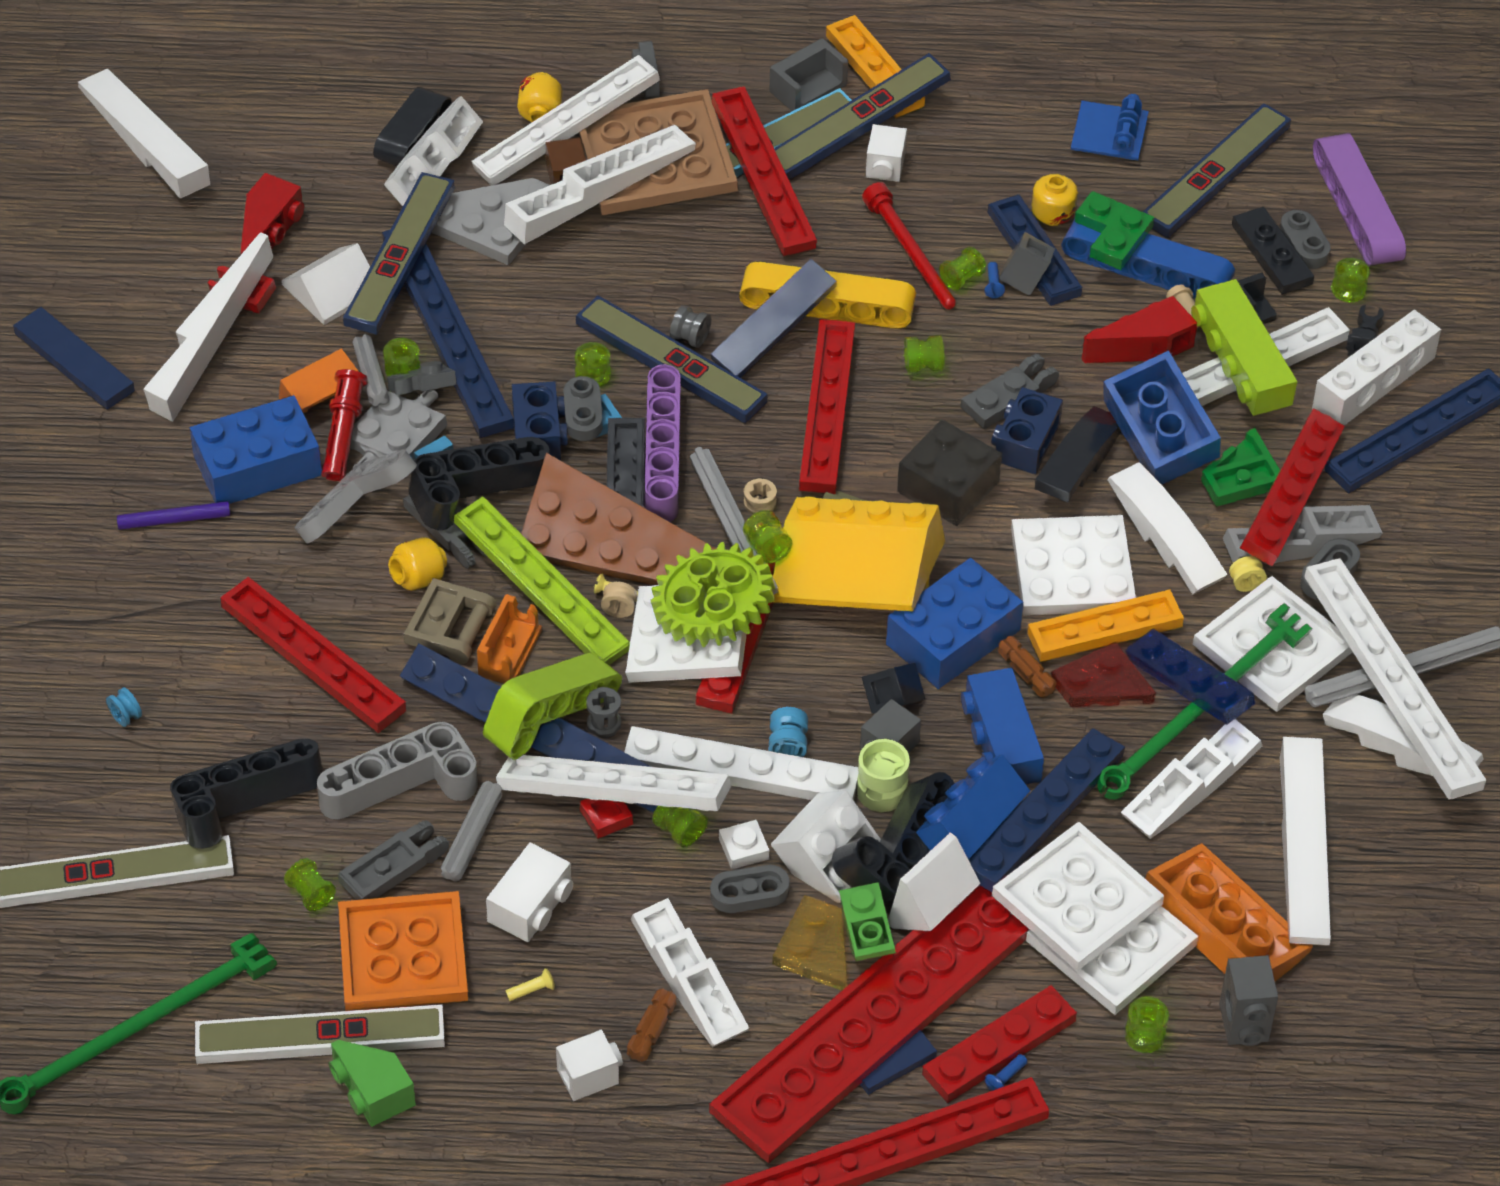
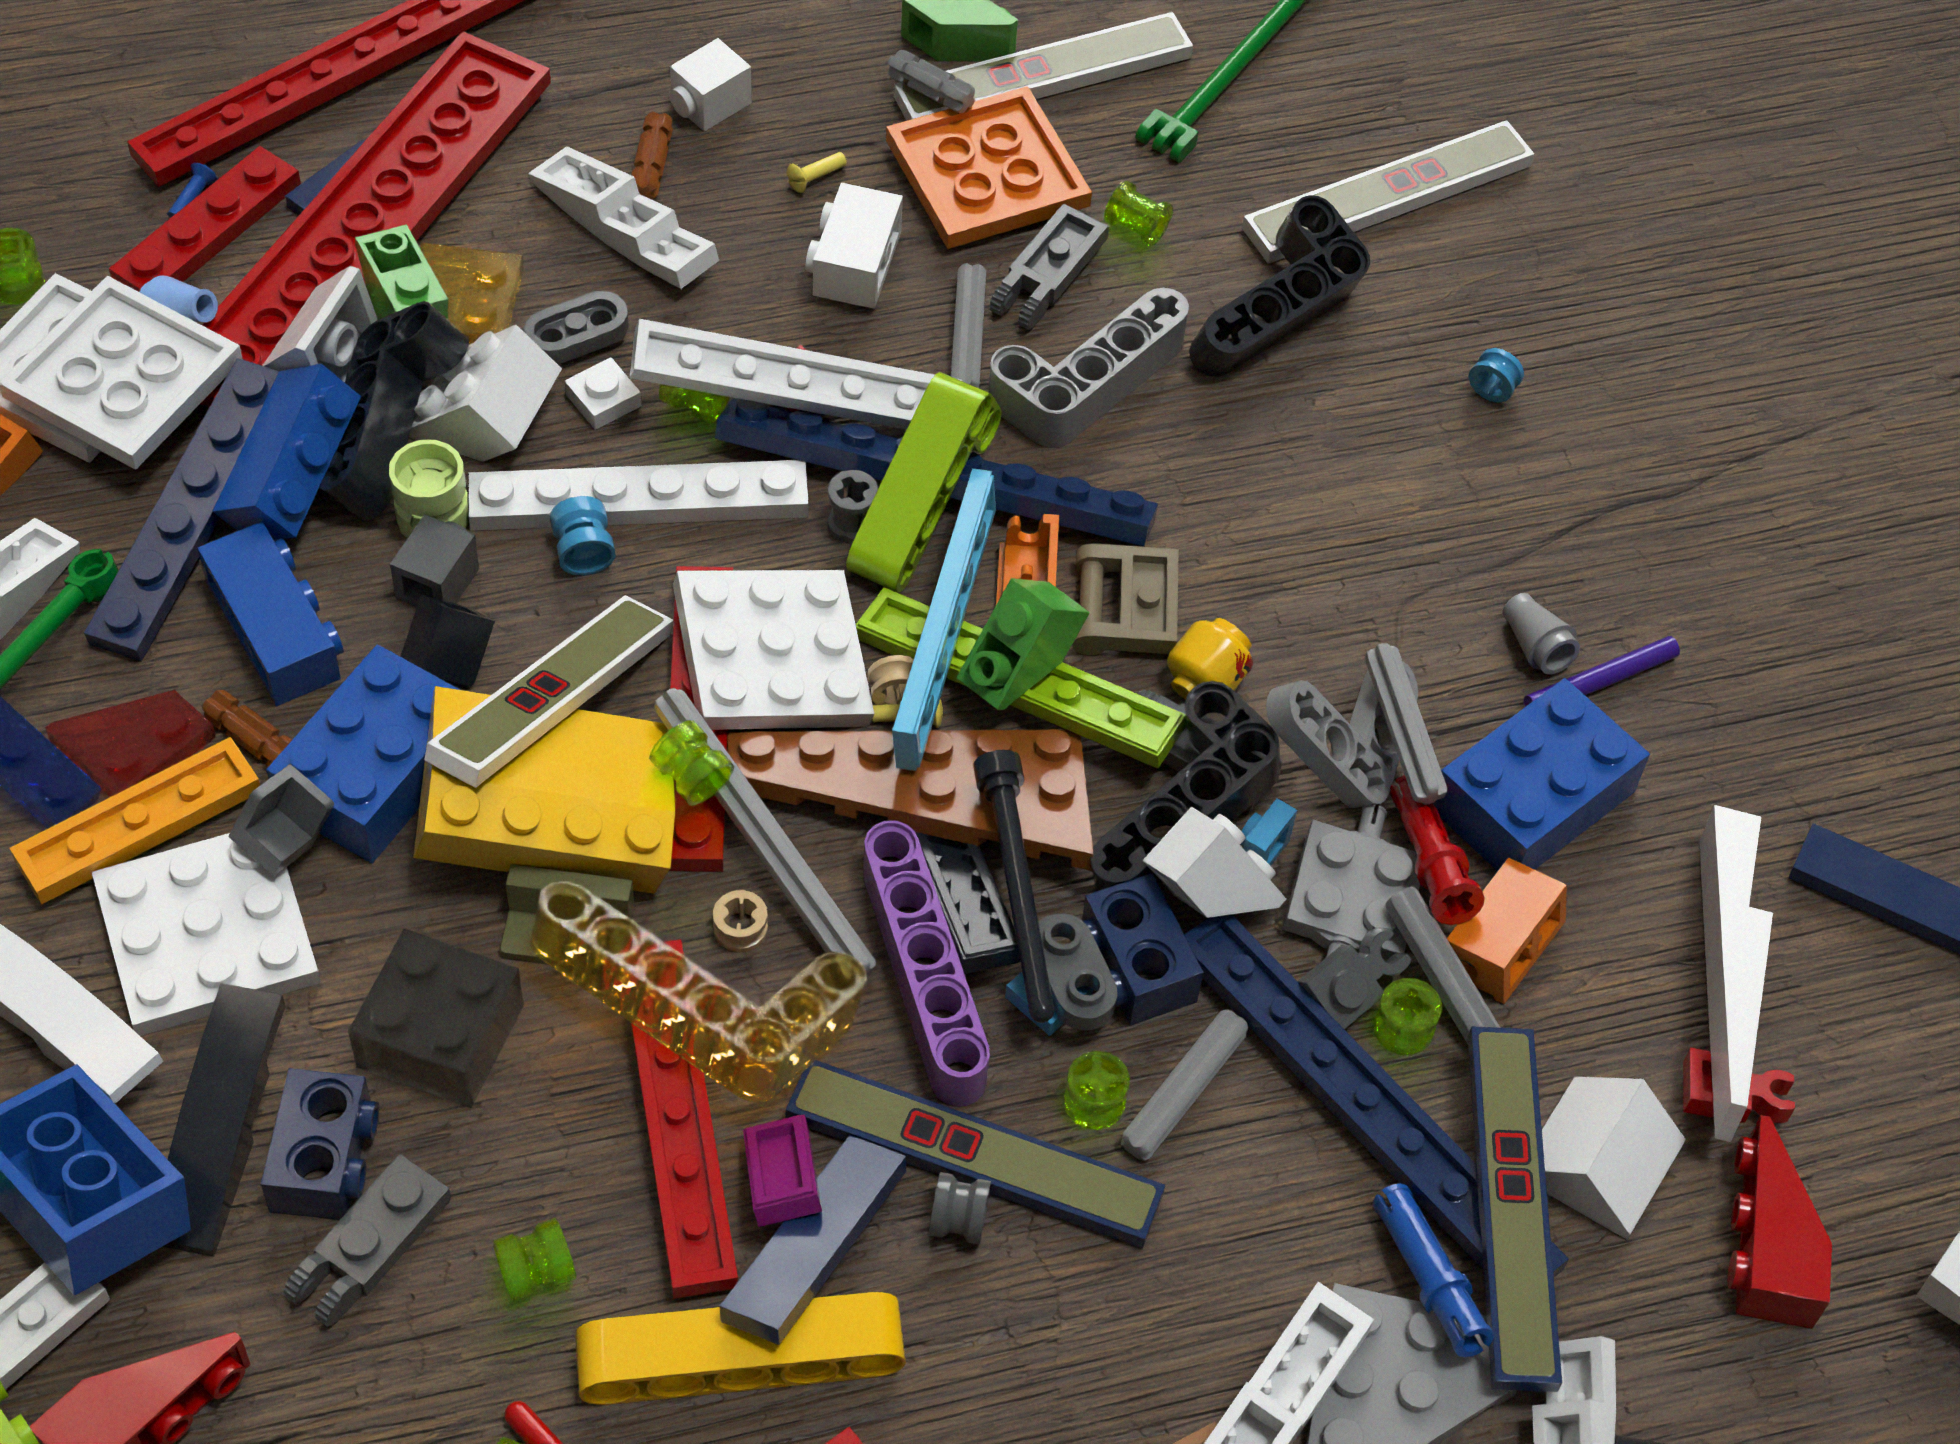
camera: 160 degrees right, 5 degrees up
(199, 538) = (1543, 637): none -> light grey cone
(313, 654) = (1292, 505): red plate -> none
(325, 475) = (1405, 724): none -> light grey axle
(419, 1015) = (931, 81): none -> light grey axle
(457, 227) = (1441, 1286): none -> blue pin
(482, 425) = (1211, 870): none -> white slope
(535, 568) = (1022, 641): none -> bright green slope
(540, 362) = (1184, 1085): none -> light grey axle
(581, 596) = (944, 621): none -> medium azure tile
(586, 493) = (999, 778): none -> black piece
(713, 594) = (788, 639): lime gear -> none
(780, 357) = (781, 1170): none -> magenta tile
(807, 425) = (687, 1008): none -> clear yellow beam
(837, 602) = (547, 691): none -> tile
(1025, 580) = (281, 819): none -> dark grey panel
(1031, 959) = (183, 298): none -> light blue cone

